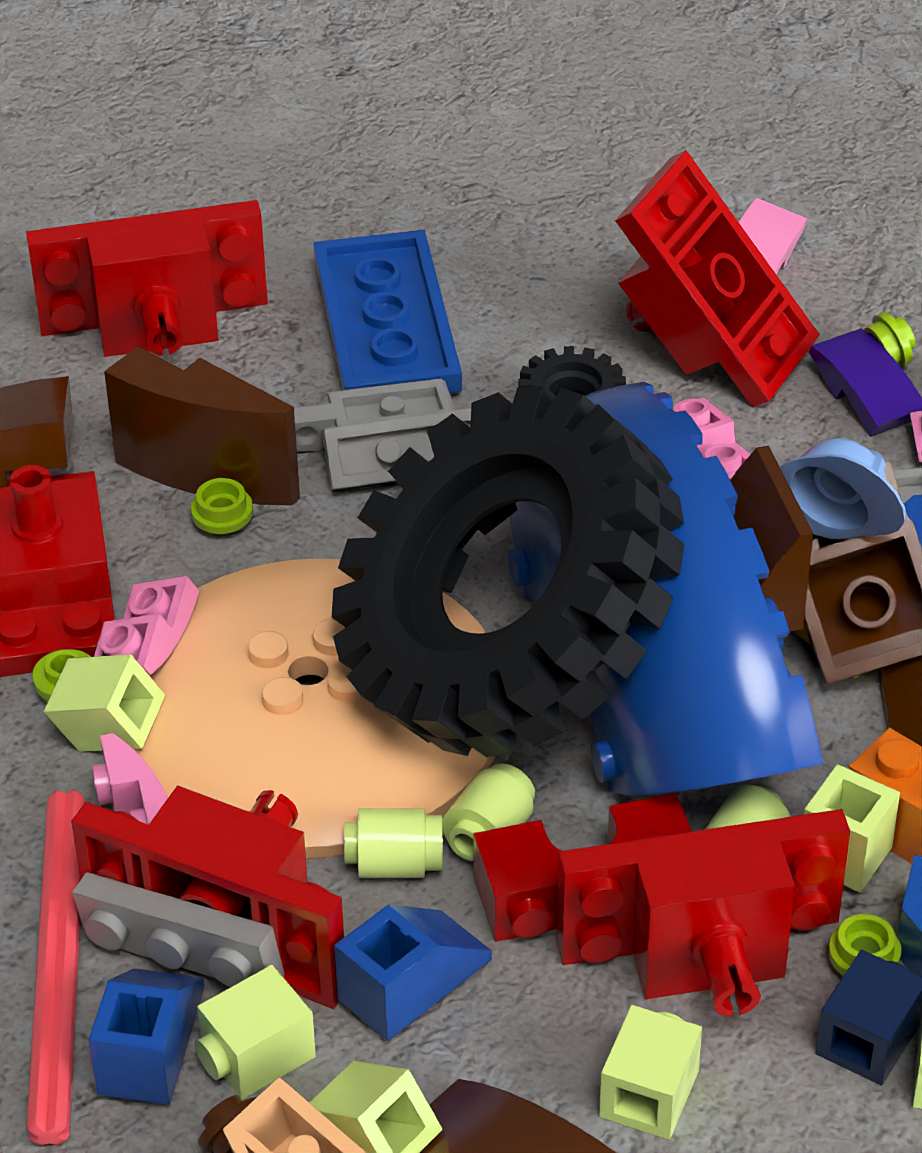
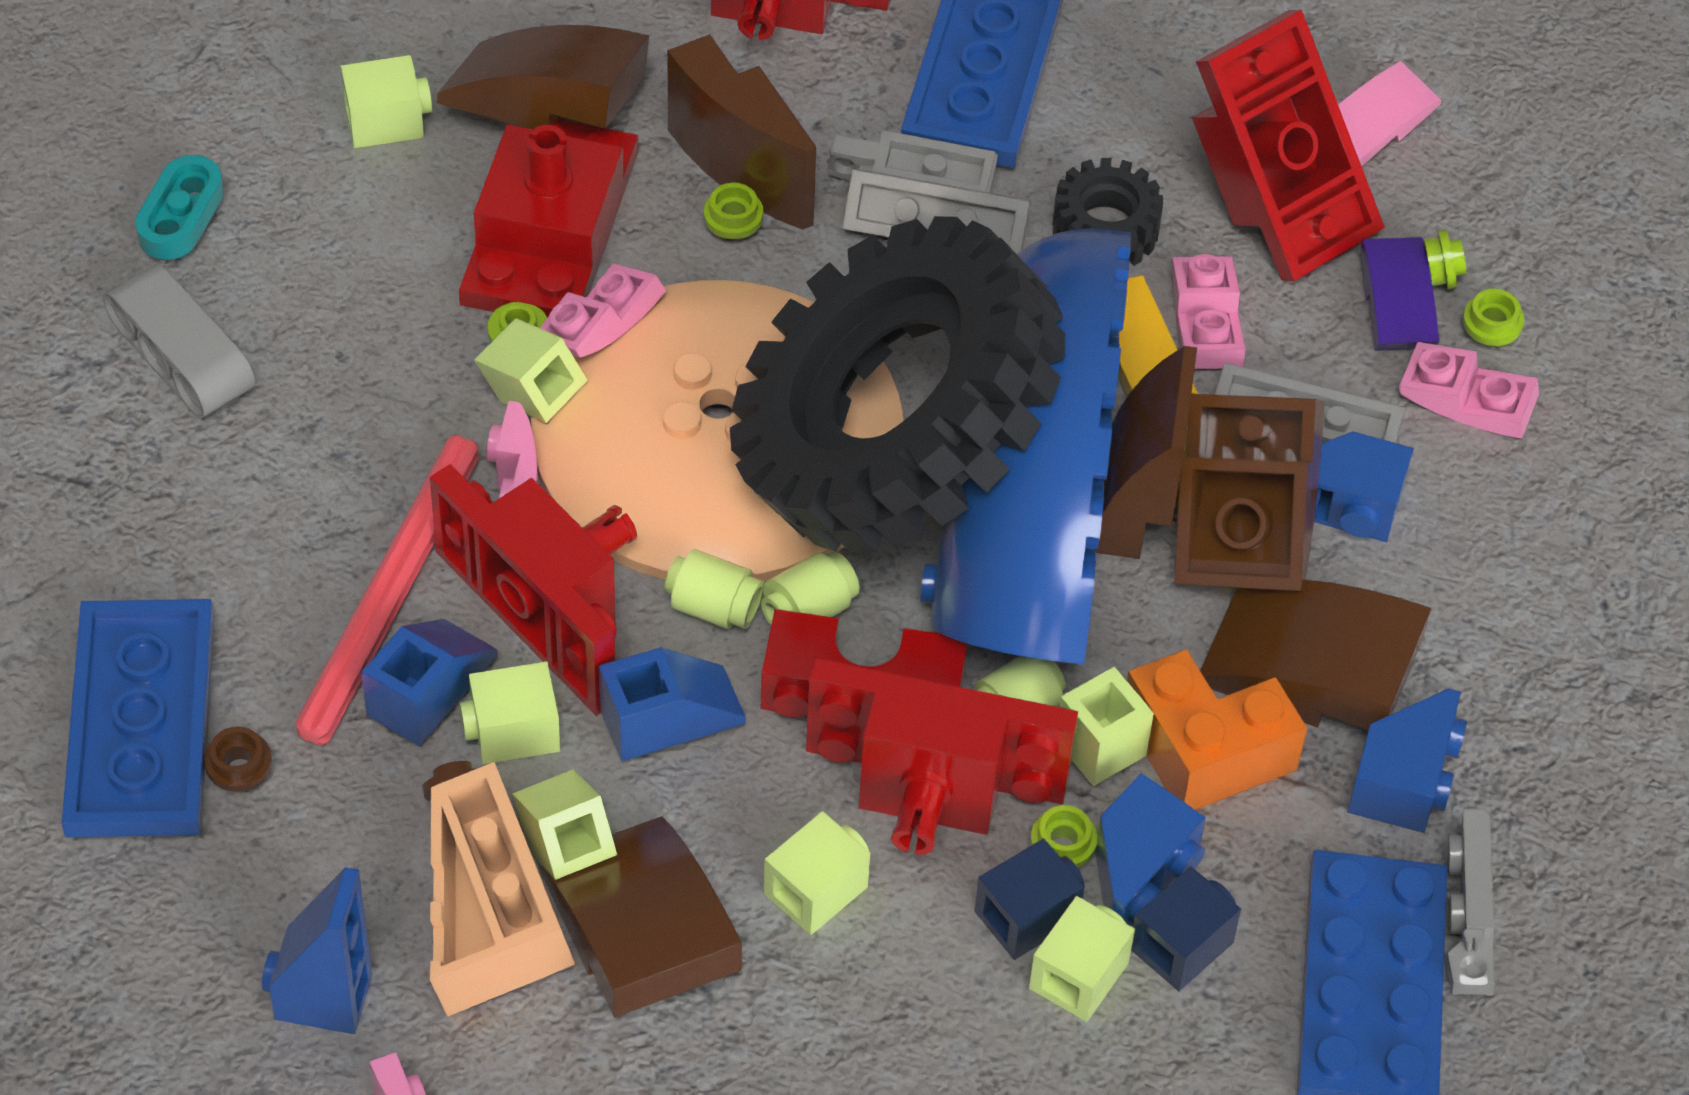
camera: 20 degrees right, 10 degrees up
(174, 930) = (488, 601): light grey plate -> none
(844, 490) = (1246, 409): light blue piece -> none

